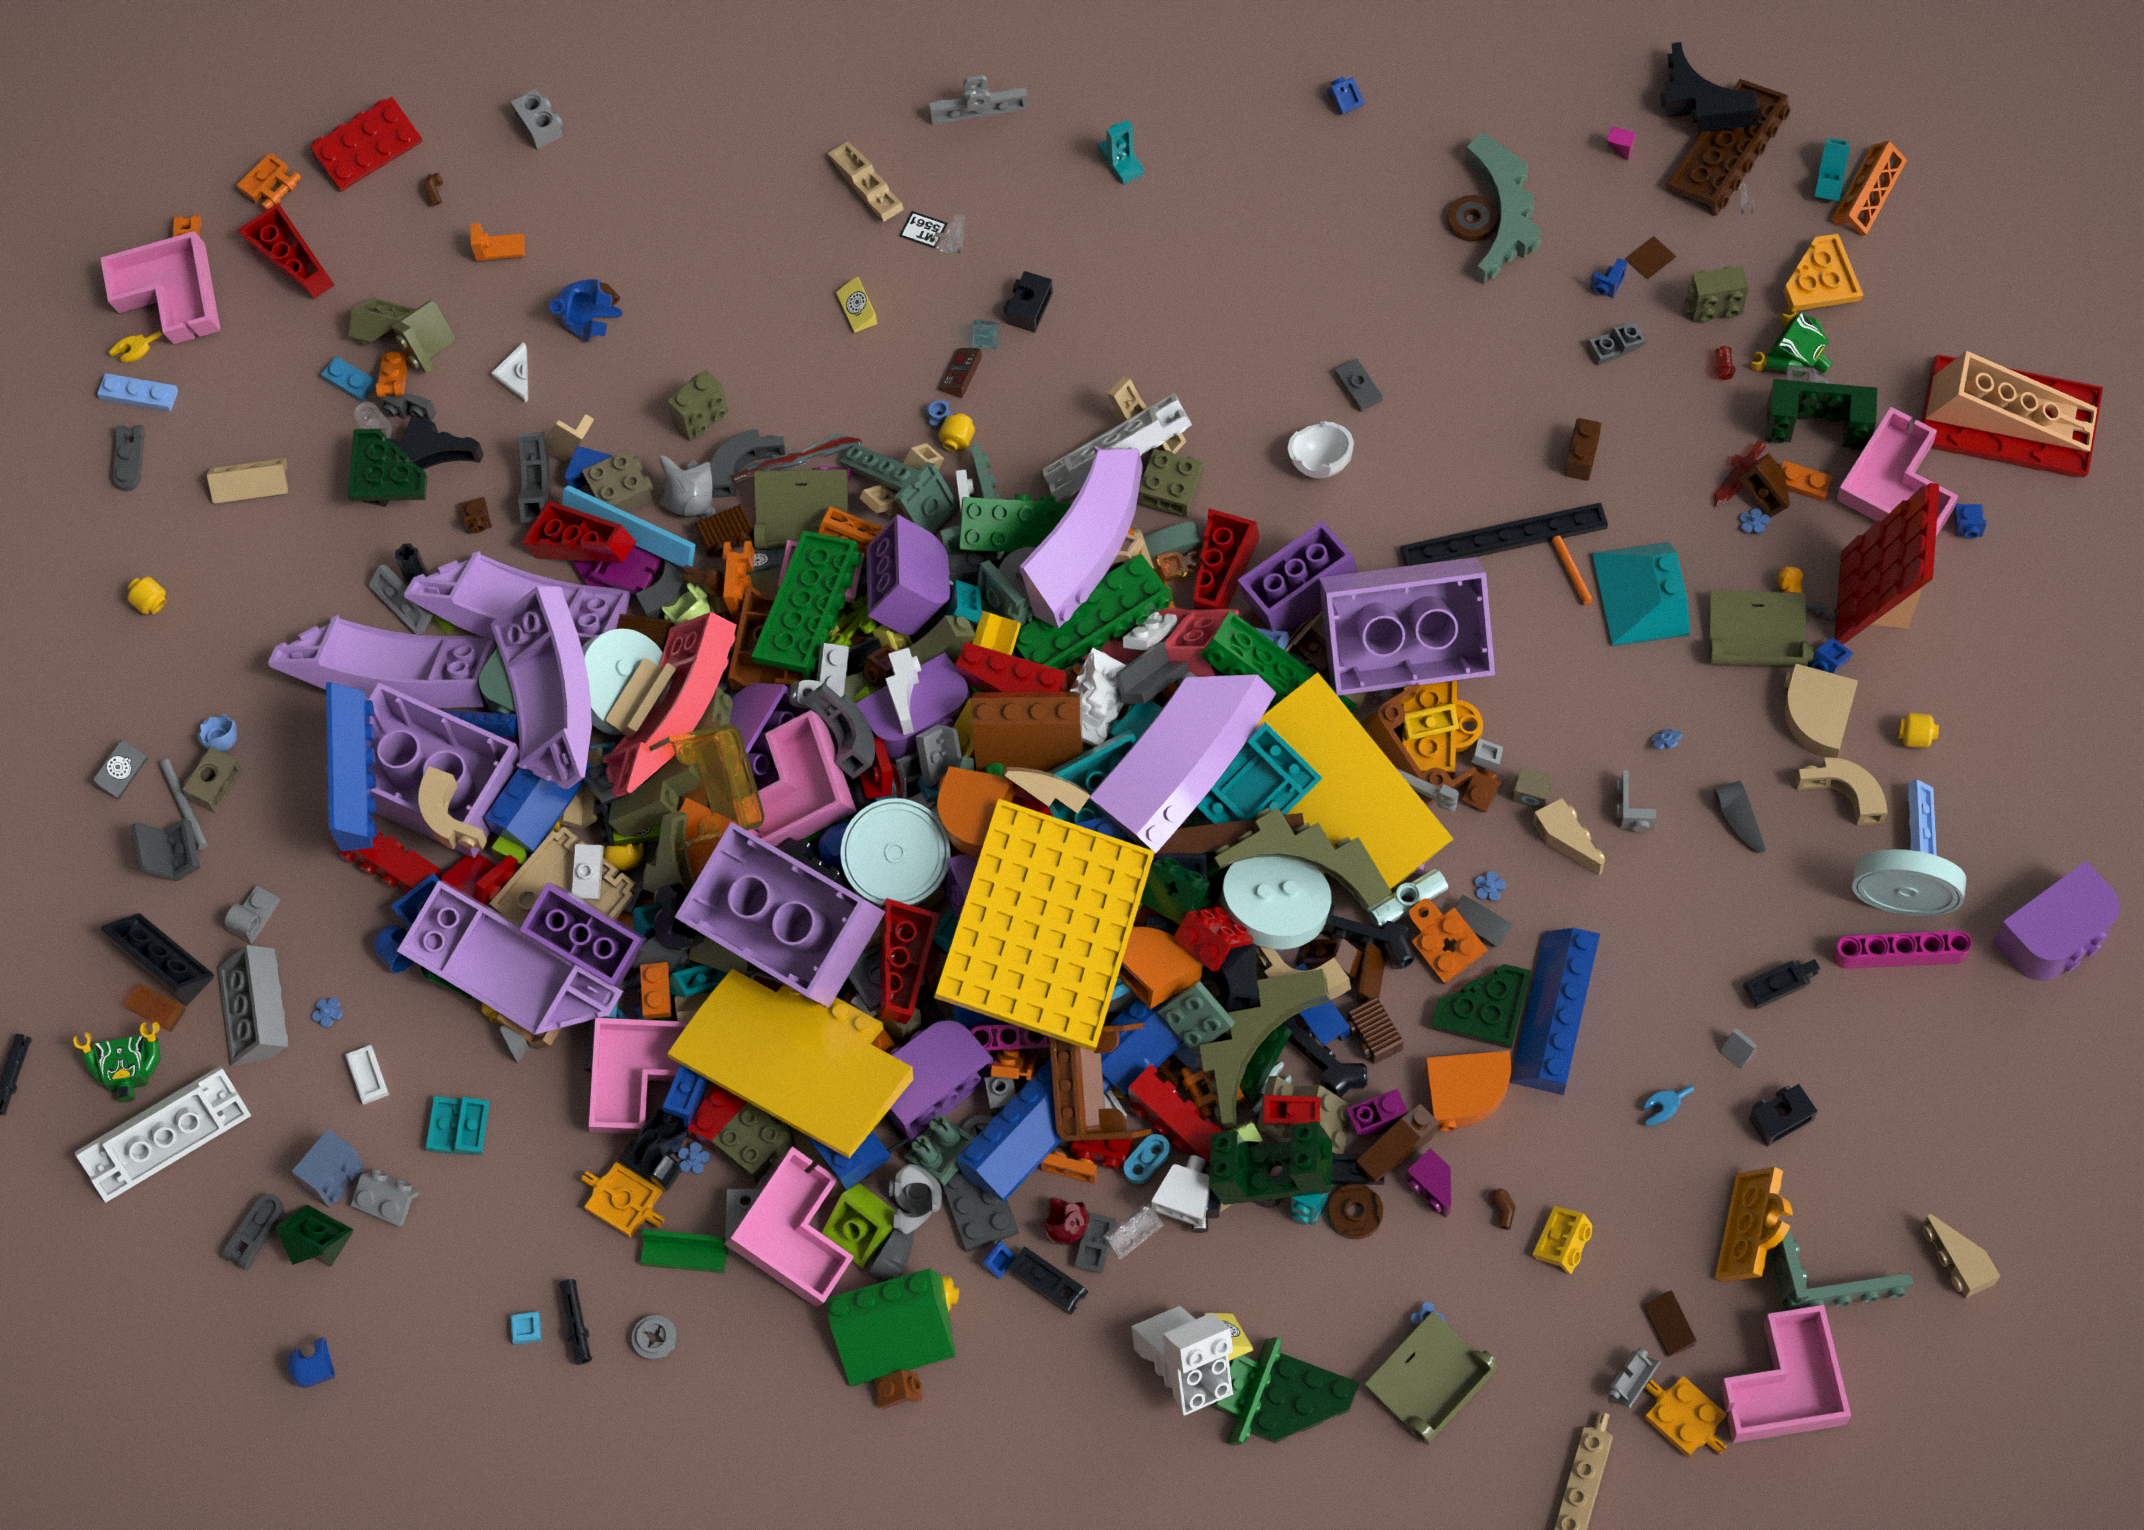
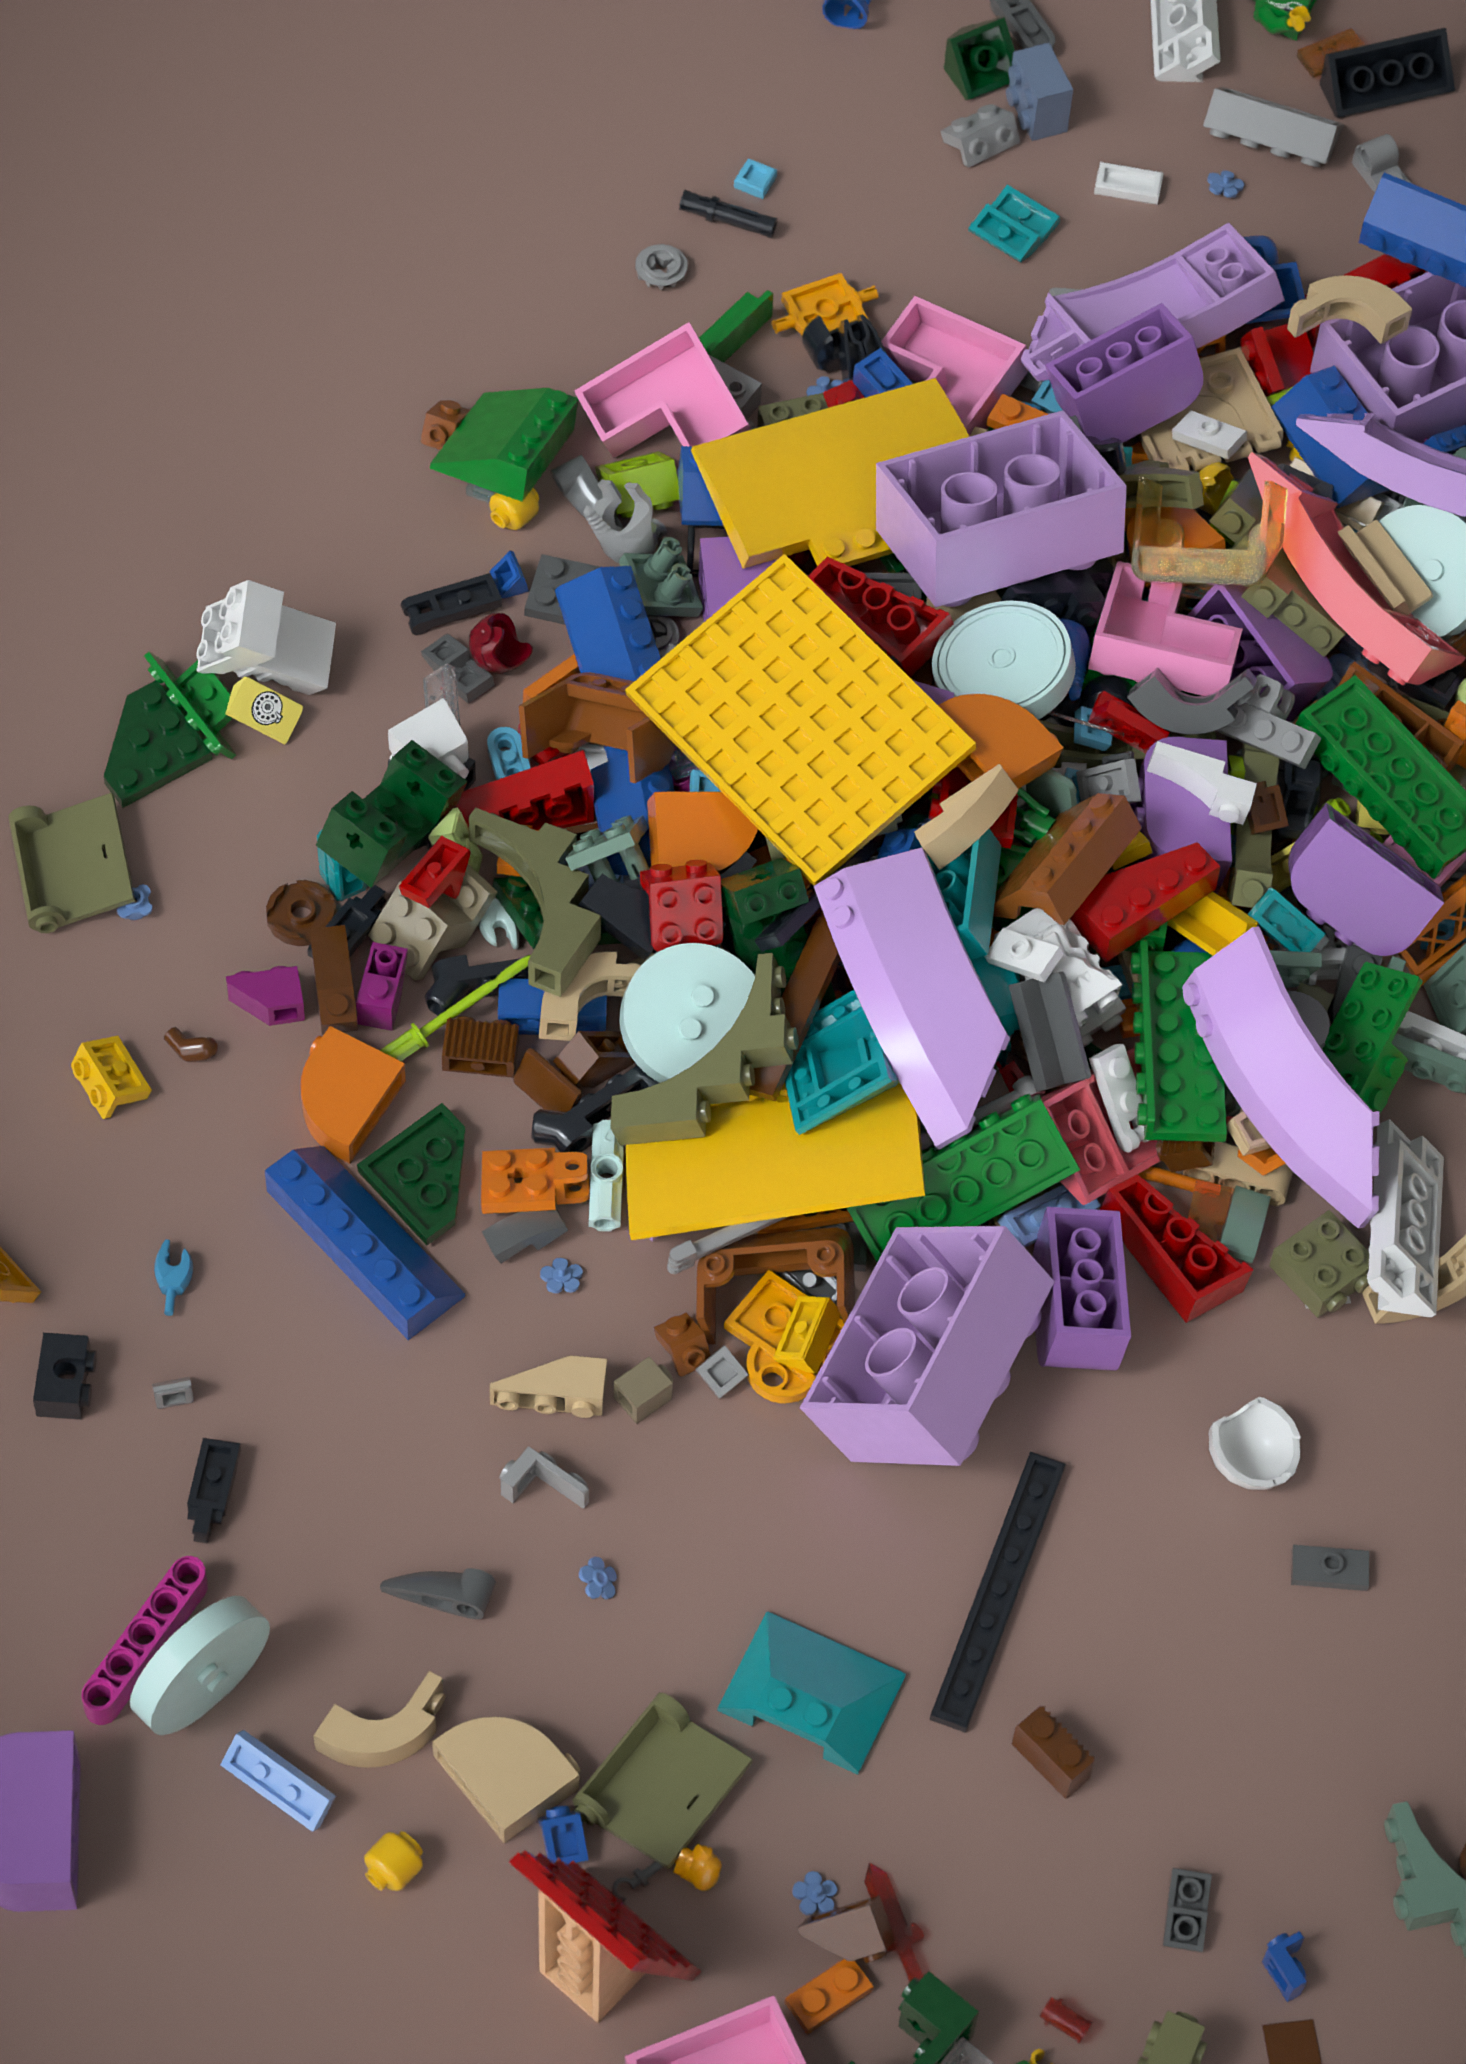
camera: 115 degrees right, 5 degrees down
(1115, 707) = (1024, 955): none -> white plate
(1396, 1072) = (415, 1038): none -> lime piece
(1572, 570) = (898, 1635): orange bar -> none

